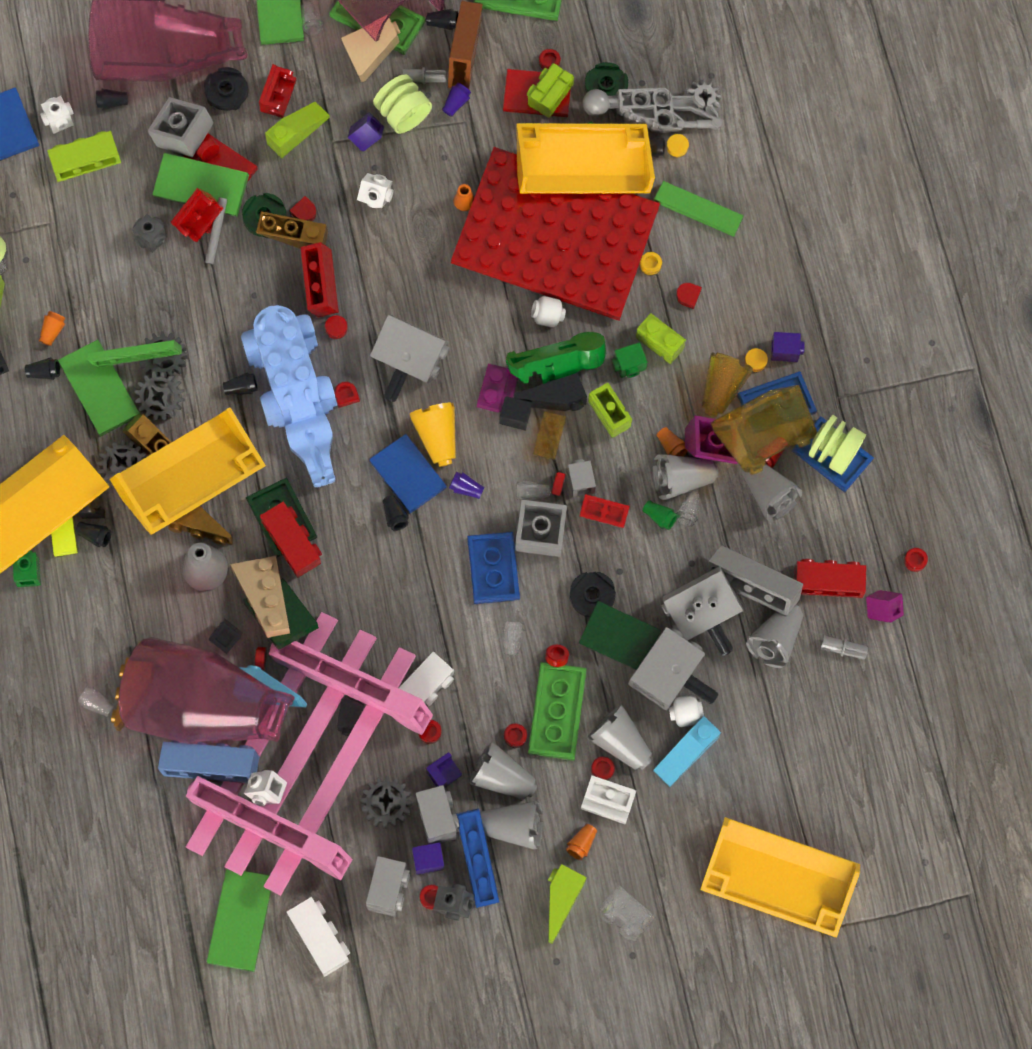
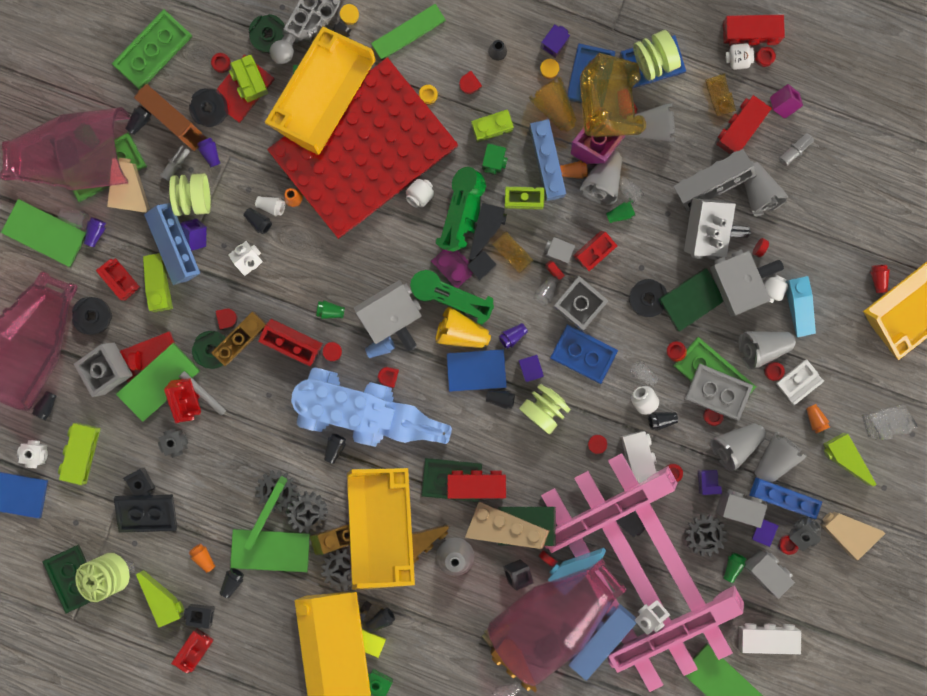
camera: 55 degrees left, 15 degrees up
(63, 249) = (145, 513): none -> black tile
(94, 232) = (142, 476): none -> black brick
(310, 43) = (94, 230): none -> dark purple cone
(343, 117) = (172, 243): none -> medium blue brick
(370, 852) = (734, 566): none -> green cone
(372, 368) = (383, 347): none -> medium blue cone
(375, 298) = (329, 310): none -> green cone
(410, 637) = (597, 444): none -> red tile
(411, 557) = (545, 408): none -> yellowish green wheel
(419, 183) = (258, 221): none -> black cone
(443, 186) = (271, 205): none -> white cone
(445, 521) = (531, 368): none -> dark purple panel
(460, 373) = (428, 287): none -> green piece
(477, 684) = (661, 420): none -> black cone
(484, 951) = (851, 534): none -> tan slope
(485, 652) = (645, 400): none -> white head
(503, 82) = (198, 106): none -> black plate
(543, 722) = (718, 392): none -> light grey tile
(662, 410) = (547, 160): none -> medium blue brick
(719, 673) = (761, 247): none -> red tile
(739, 299) = (497, 54): none -> black cone
(772, 814) = (880, 277): none -> red cone
(846, 538) = (719, 94): none -> clear yellow slope
(896, 531) = (740, 56): none -> white head
(933, 528) = (753, 29): none -> red brick

